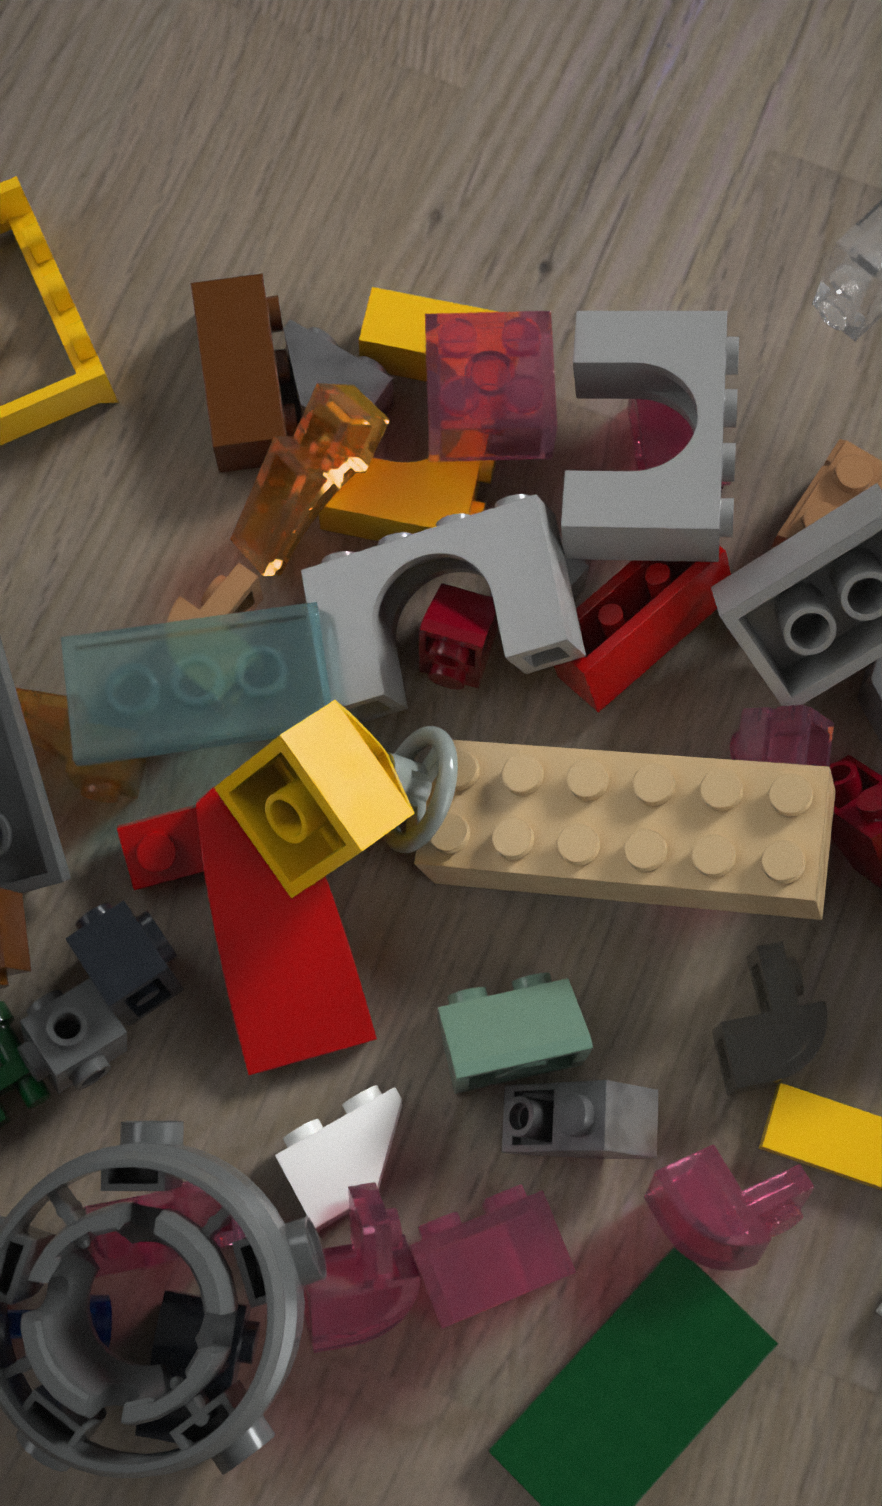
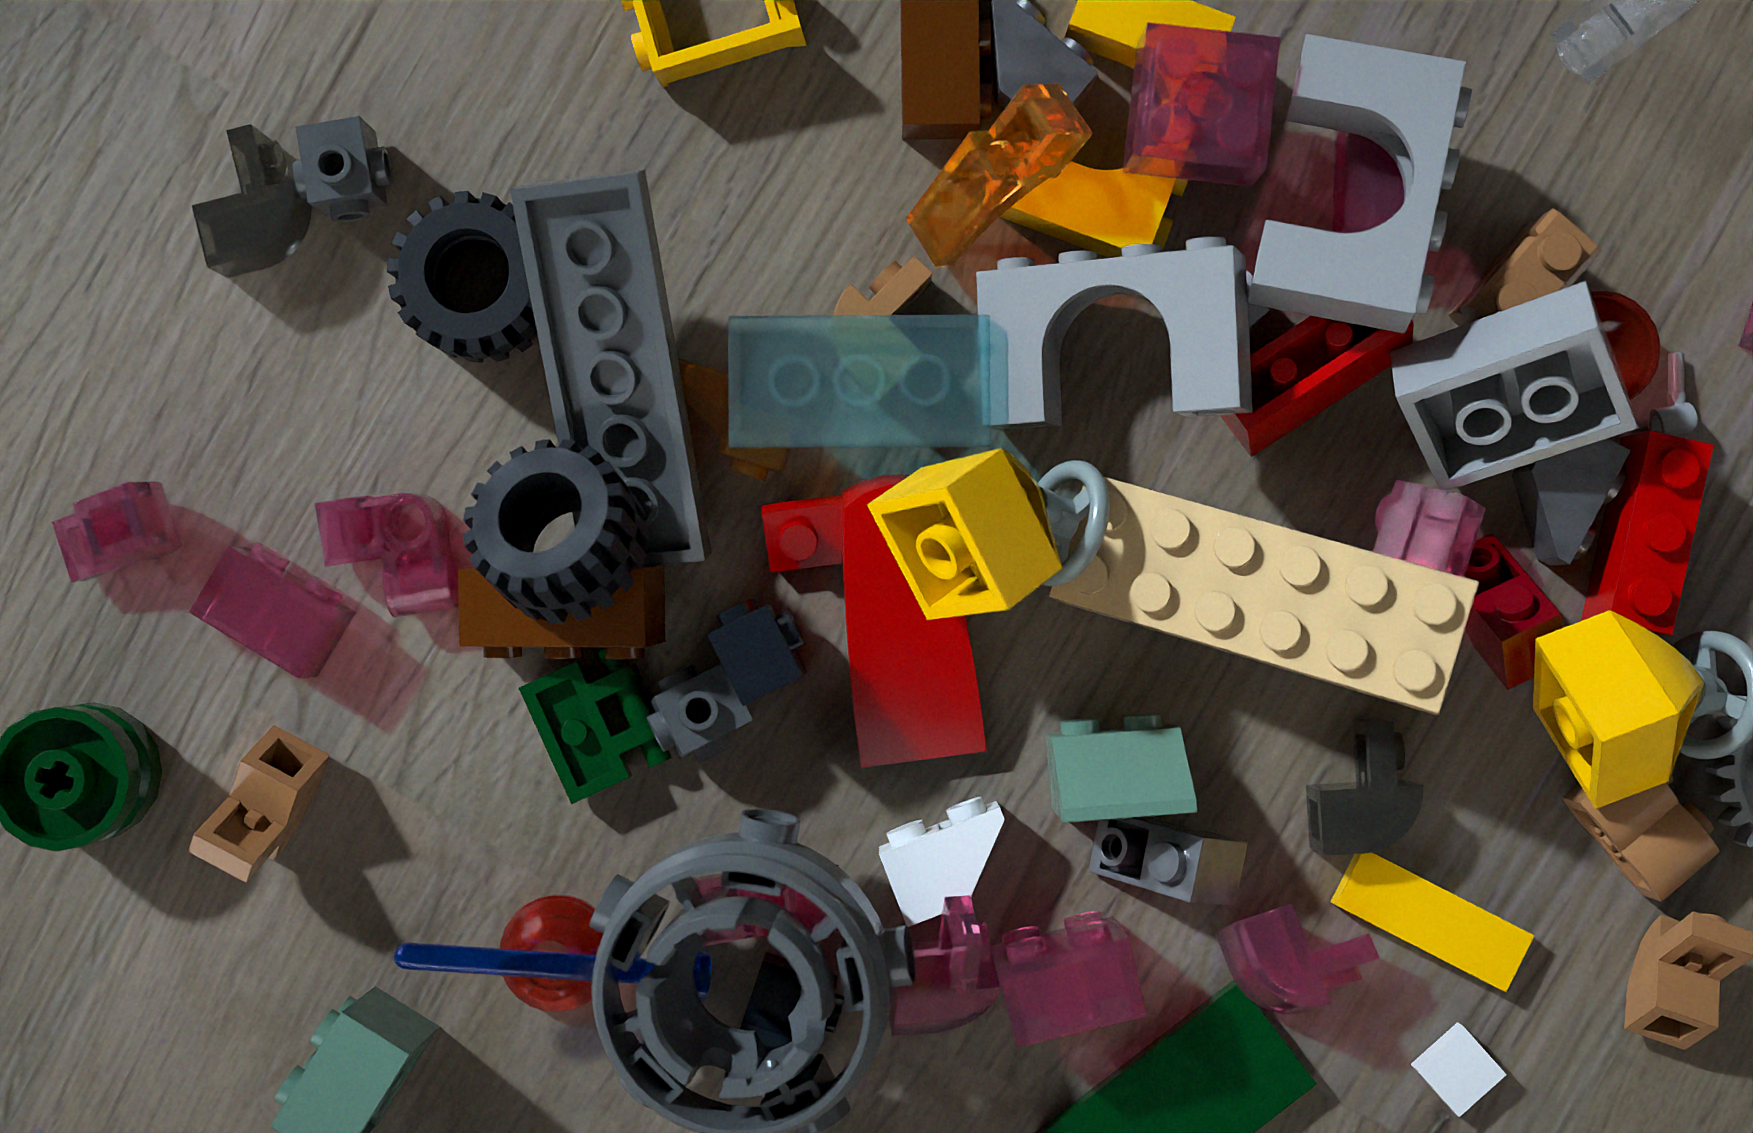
camera: 10 degrees right, 15 degrees up
(457, 637) = (1126, 362): dark red slope -> none

